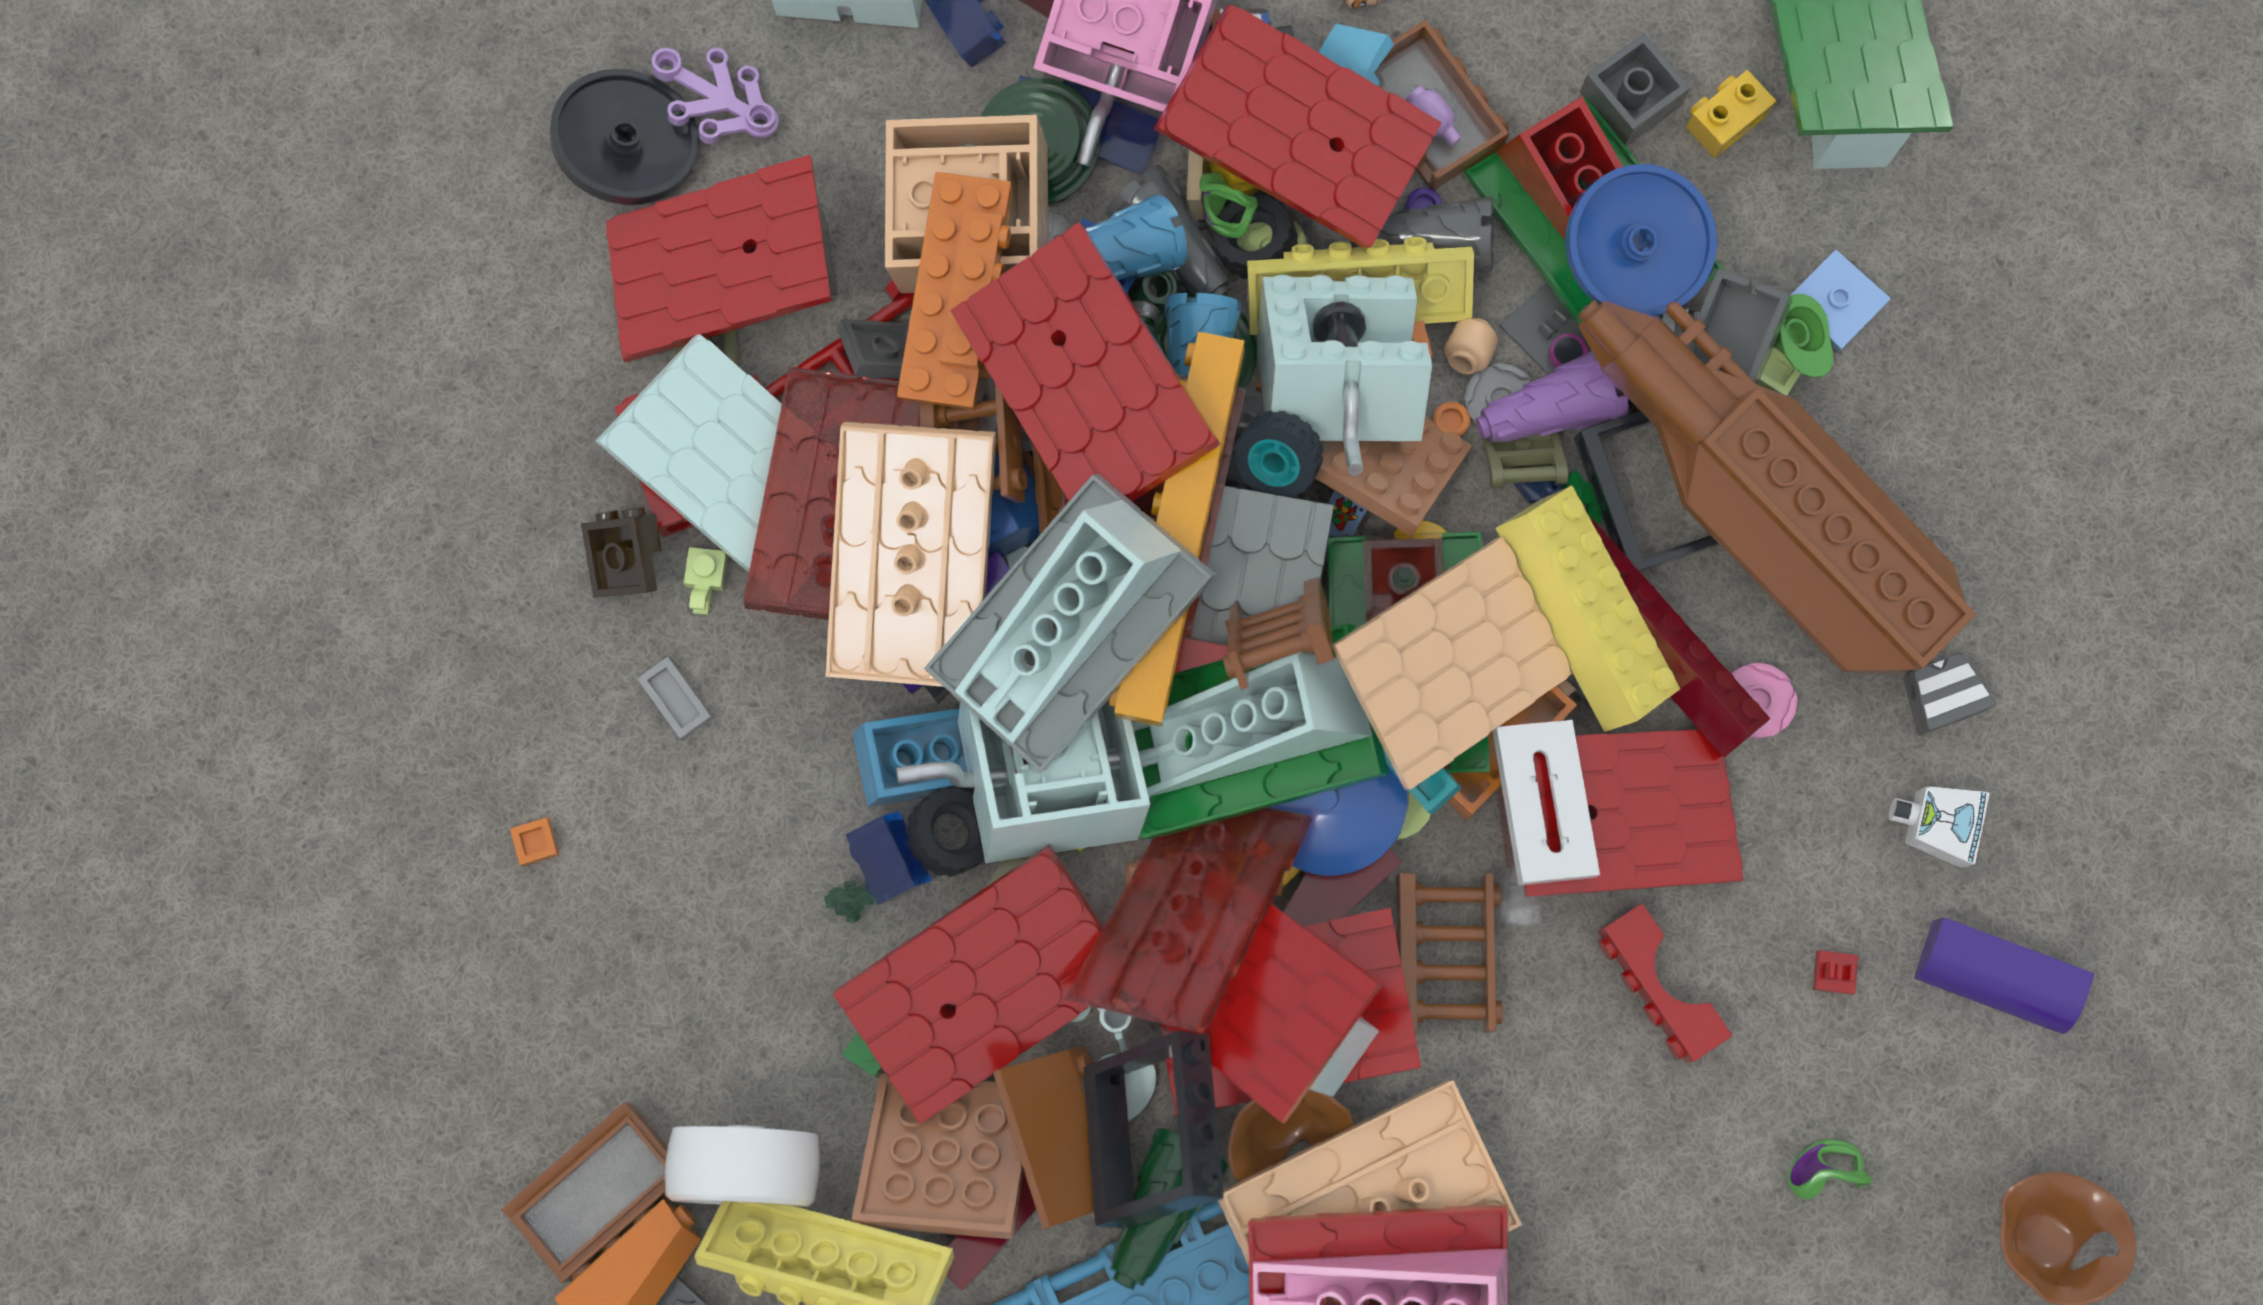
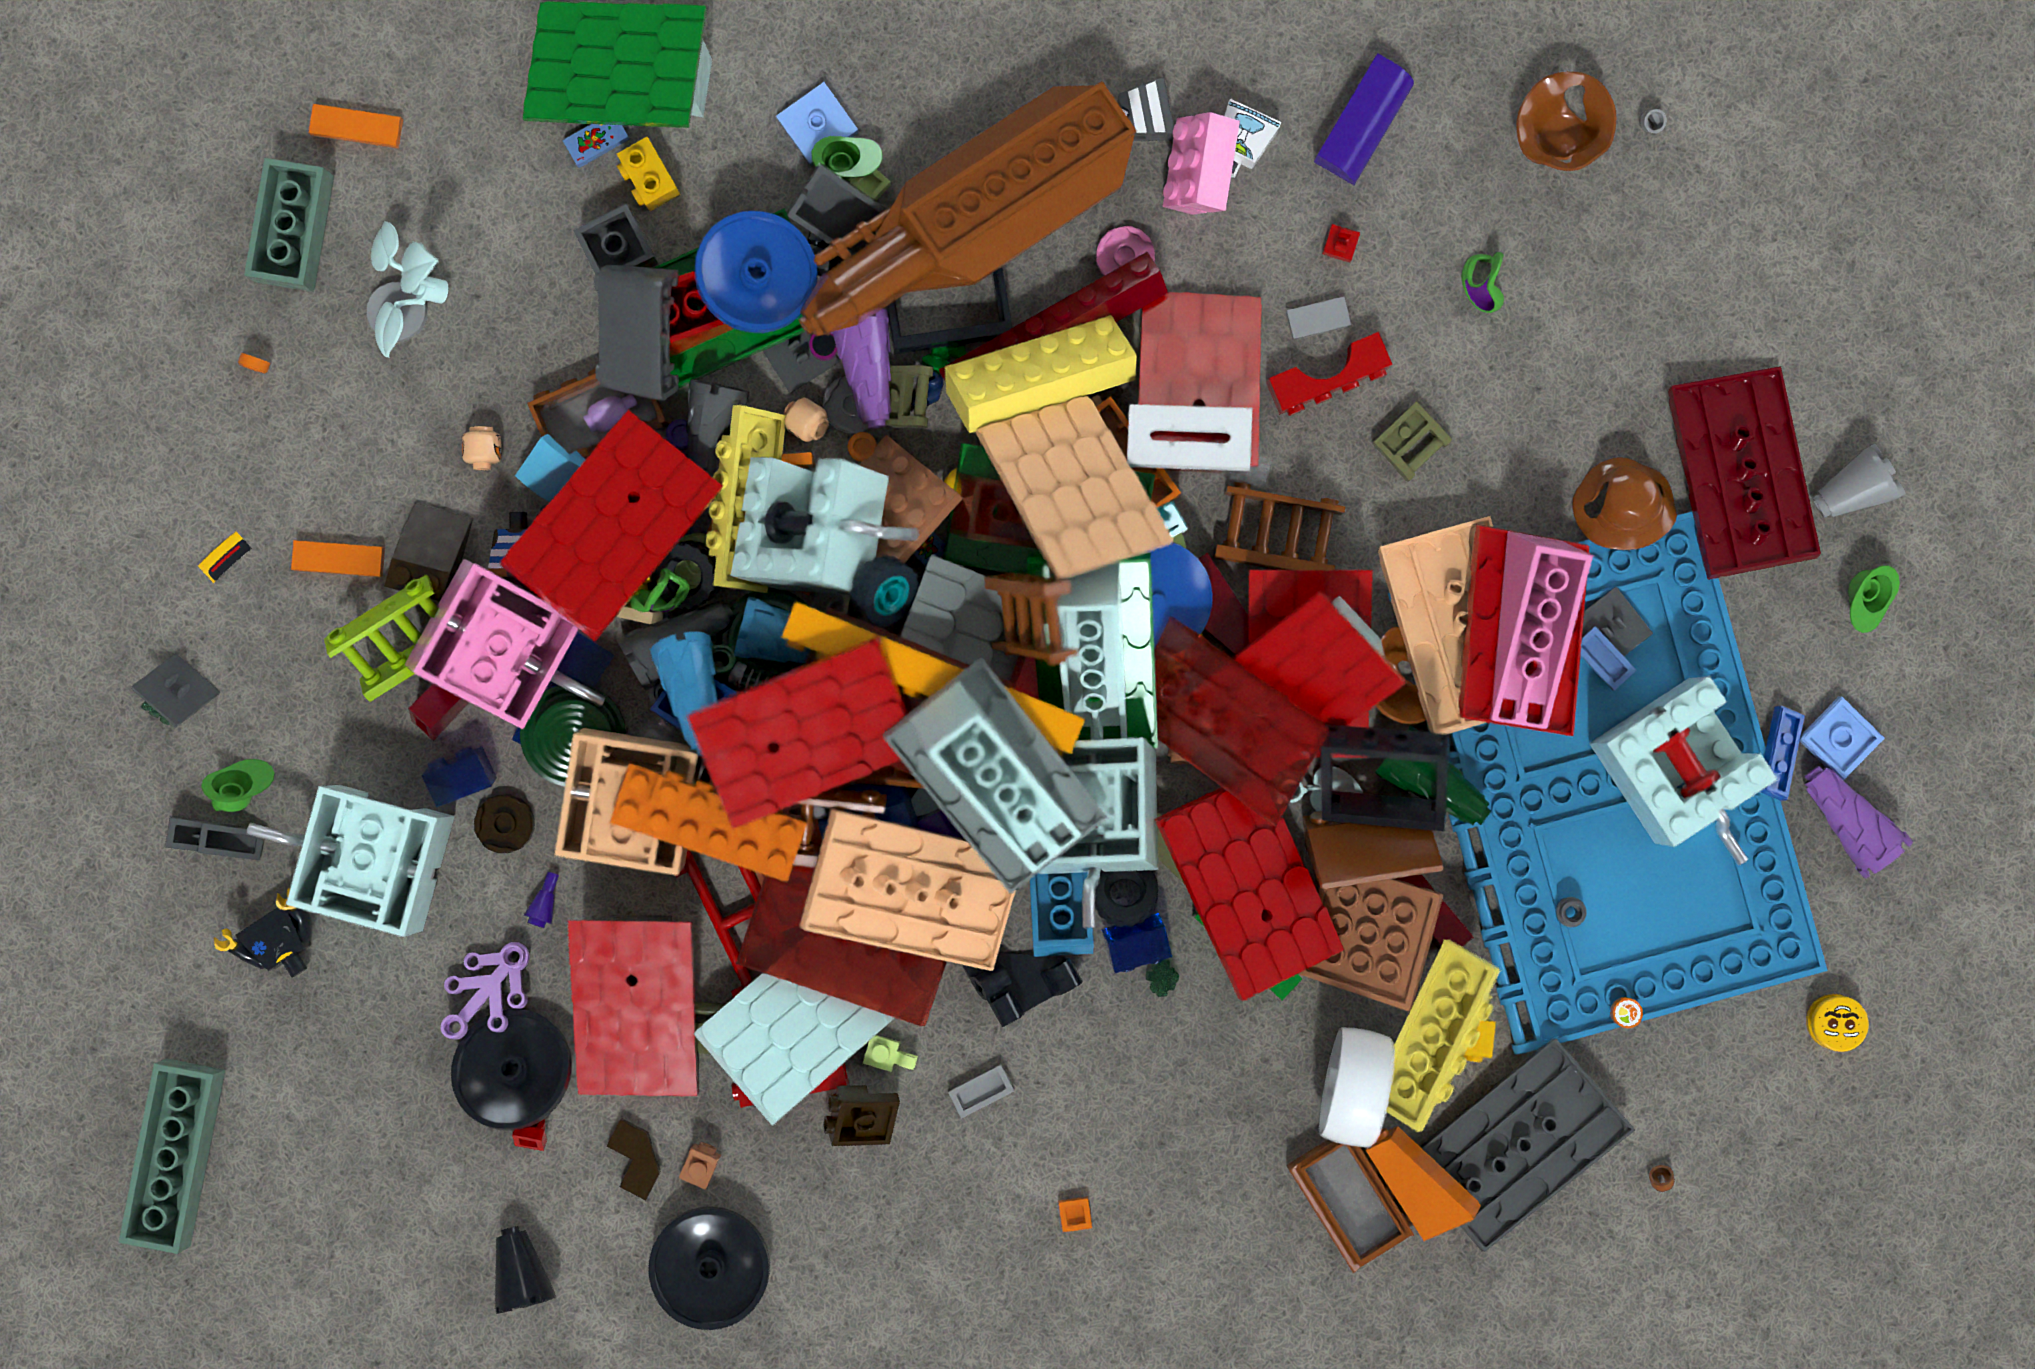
camera: 80 degrees left, 10 degrees up
(381, 186) = (519, 1273): none -> black cone
(413, 404) = (709, 1268): none -> black dish
(538, 376) = (700, 1165): none -> nougat bracket
(547, 176) = (531, 1137): none -> red tile
(553, 299) = (636, 1145): none -> dark brown tile
(817, 723) = (1022, 982): none -> black panel
(826, 142) = (541, 908): none -> dark purple cone
(874, 347) = (729, 890): dark grey tile -> none
(921, 96) = (512, 827): none -> dark brown tile
(1539, 114) = (635, 330): none -> dark grey windscreen
(1607, 1098) = (1404, 434): none -> olive plate
(1732, 959) = (1318, 318): none -> light grey tile
(1755, 49) = (594, 141): none -> medium blue tile
(1898, 767) = (1201, 163): none -> bright pink piece

